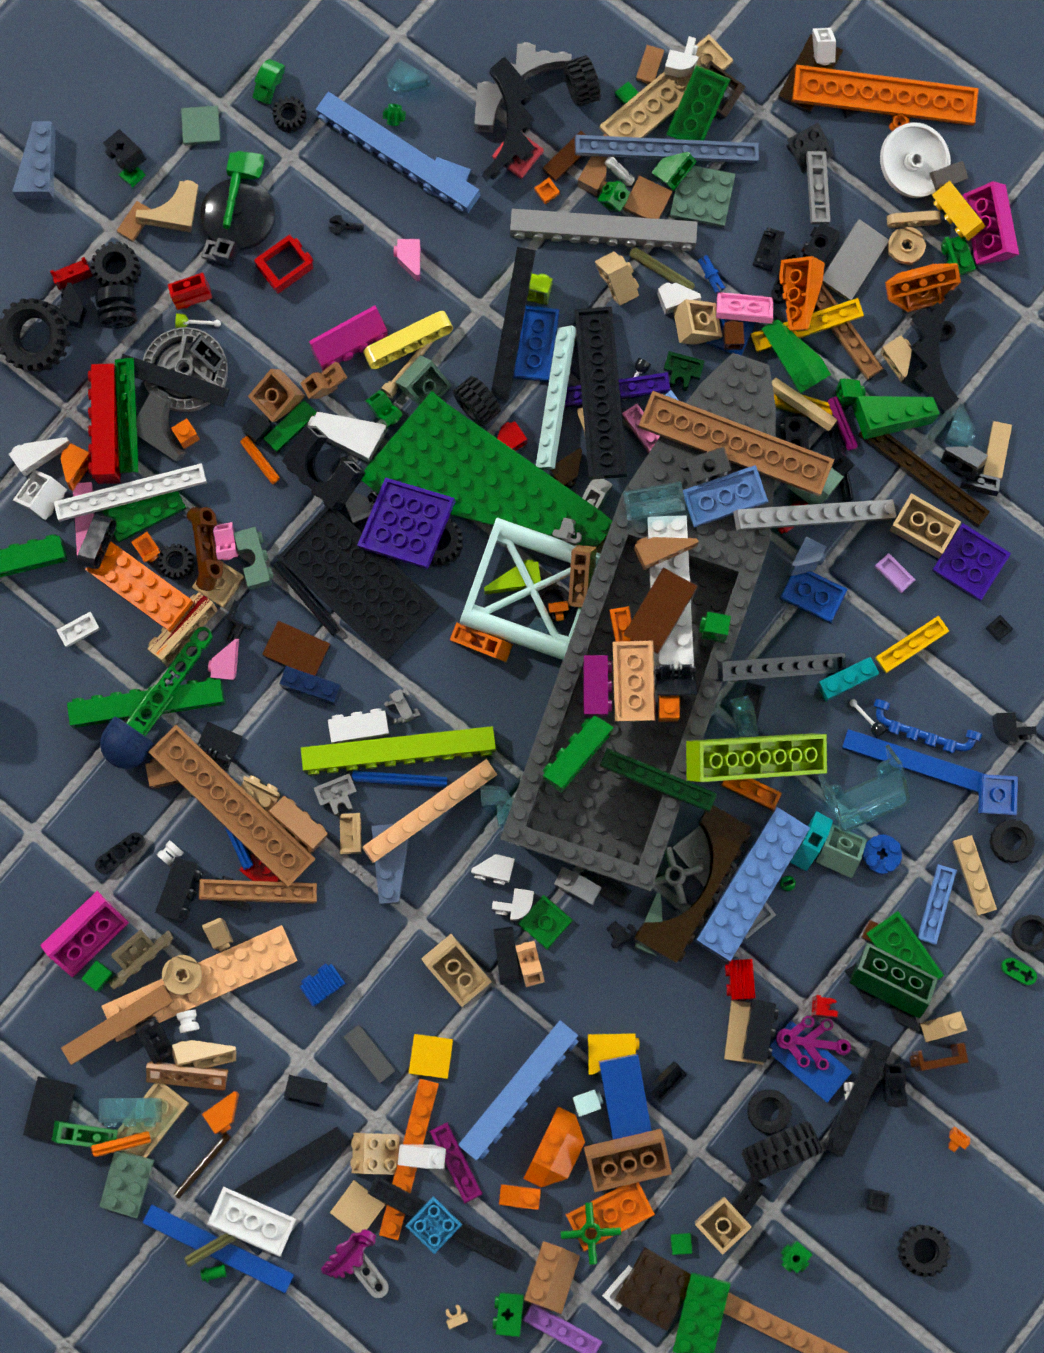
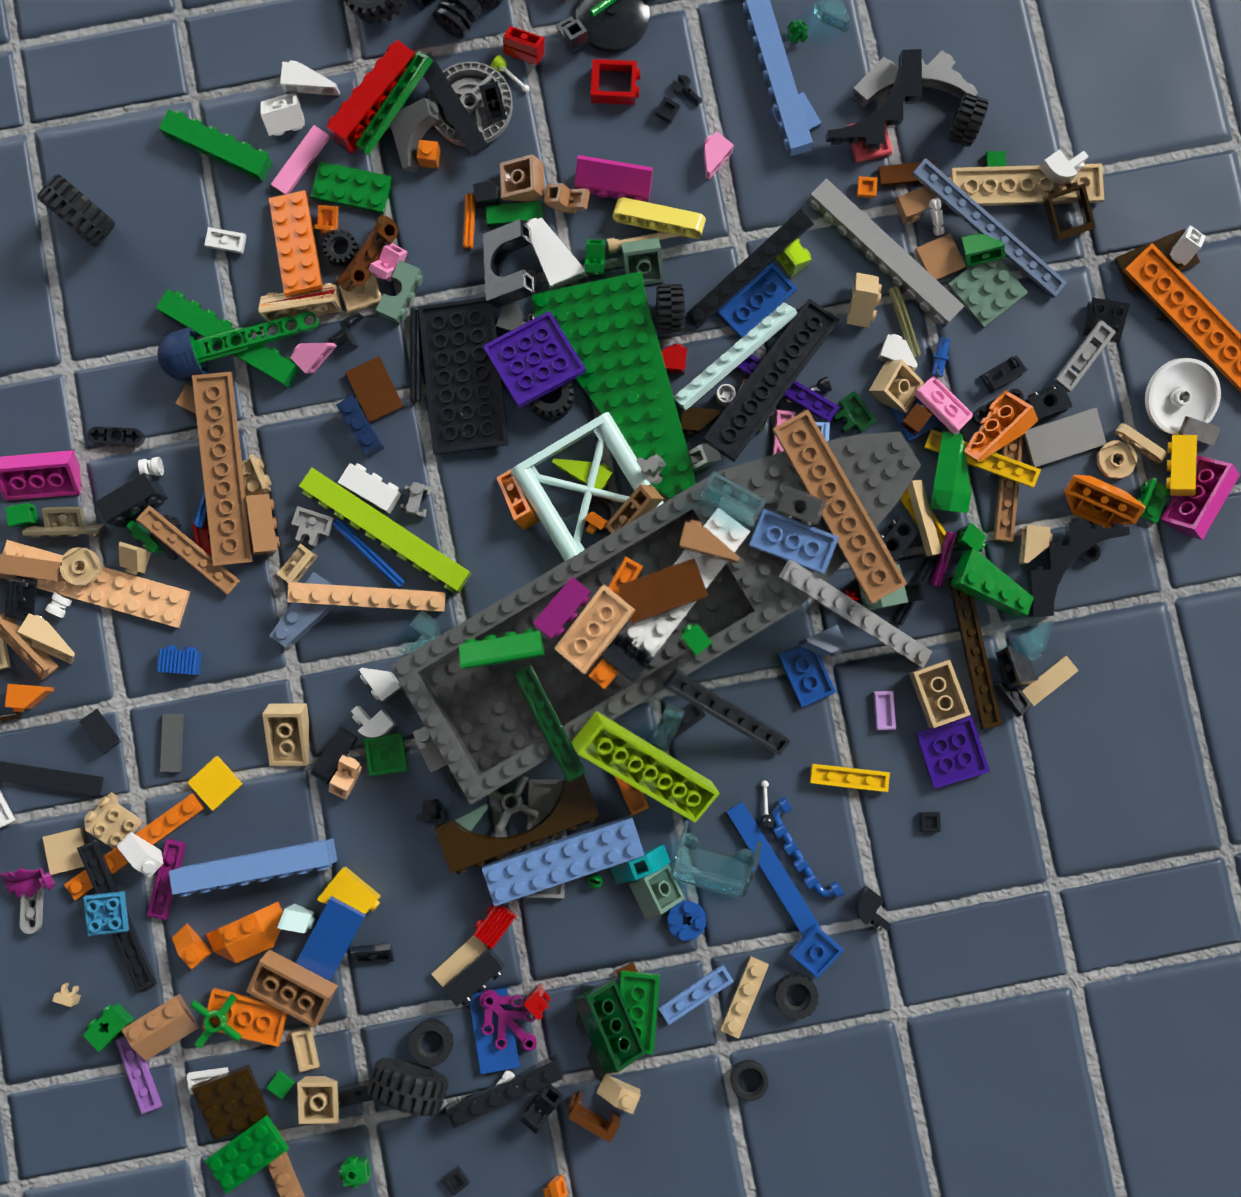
camera: 45 degrees right, 5 degrees up
(74, 464) = (322, 109): orange slope -> none
(96, 541) = (291, 183): black beam -> none
(130, 492) = (348, 165): white plate -> none
(204, 911) = (139, 532): none -> green plate
(219, 744) = (255, 415): black hinge -> none
(343, 252) = (667, 110): none -> black plate
(571, 430) = (725, 391): none -> white wheel
(614, 196) = (915, 233): green brick -> none
(650, 64) = (1034, 151): medium nougat tile -> none
(677, 1201) = (305, 1049): none -> tan tile
(698, 105) = (1044, 212): green tile -> none
(847, 678) = (775, 763): teal arch -> none
(898, 119) = (1200, 355): orange plate -> none
(1021, 968) = (710, 1102): green beam -> none

